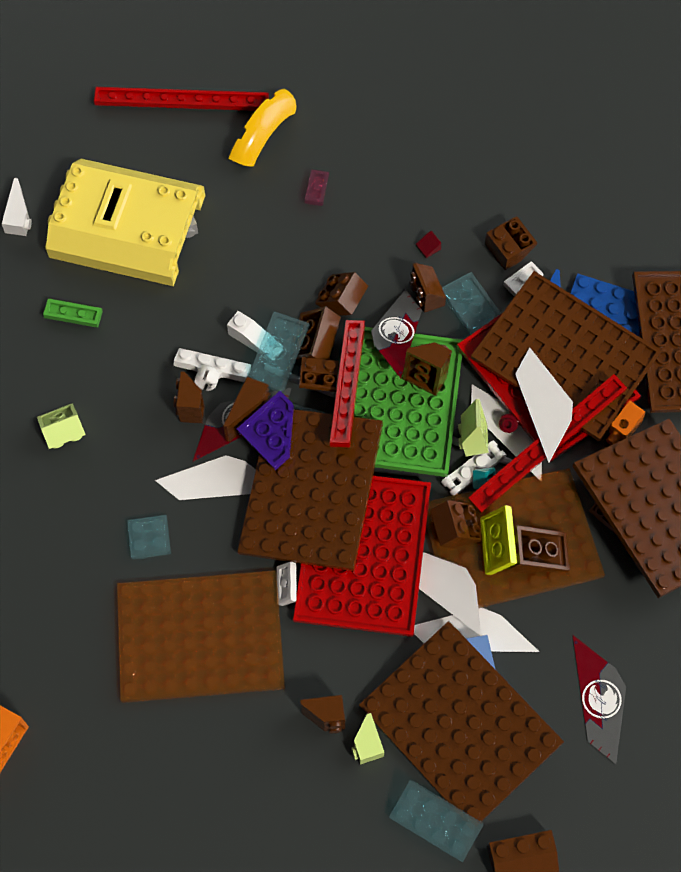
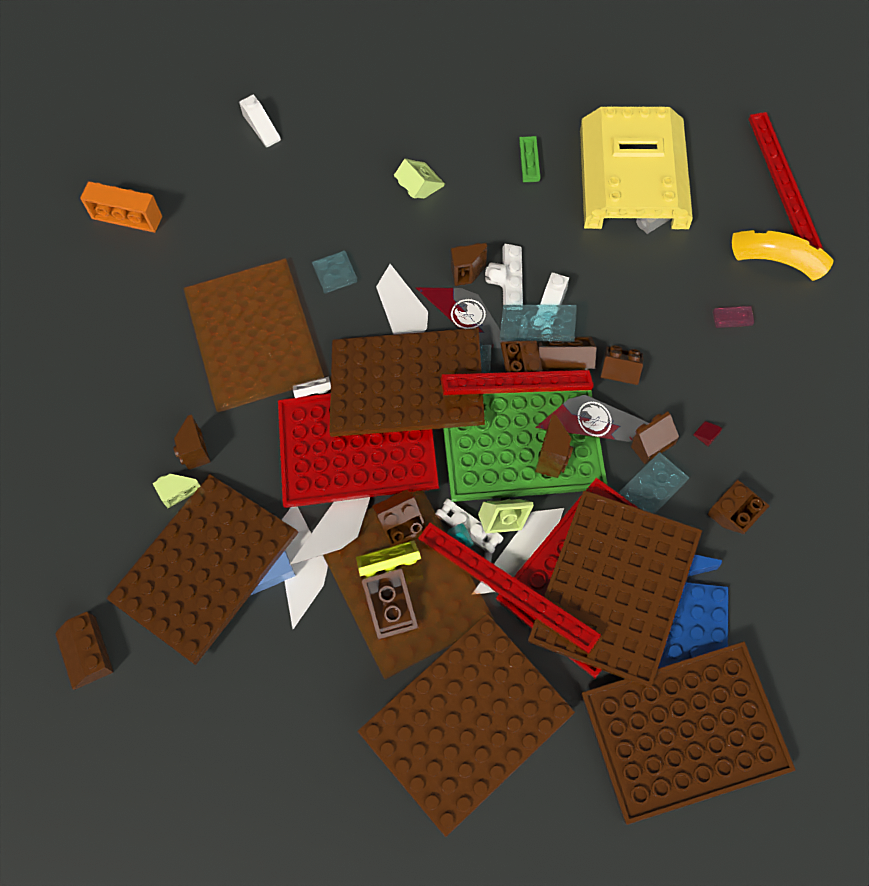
camera: 80 degrees right, 0 degrees up
(16, 216) = (611, 92): white slope -> none
(249, 400) = (470, 309): reddish brown slope -> none
(271, 430) = (449, 330): dark purple plate -> none
(436, 820) = (109, 564): clear light blue plate -> none
(508, 423) = (526, 548): dark red plate -> none
(518, 279) = (709, 537): white plate -> none
(546, 402) = (551, 573): white sticker -> none
(601, 699) = (255, 700): sticker -> none
(629, 419) = (564, 673): orange torso -> none

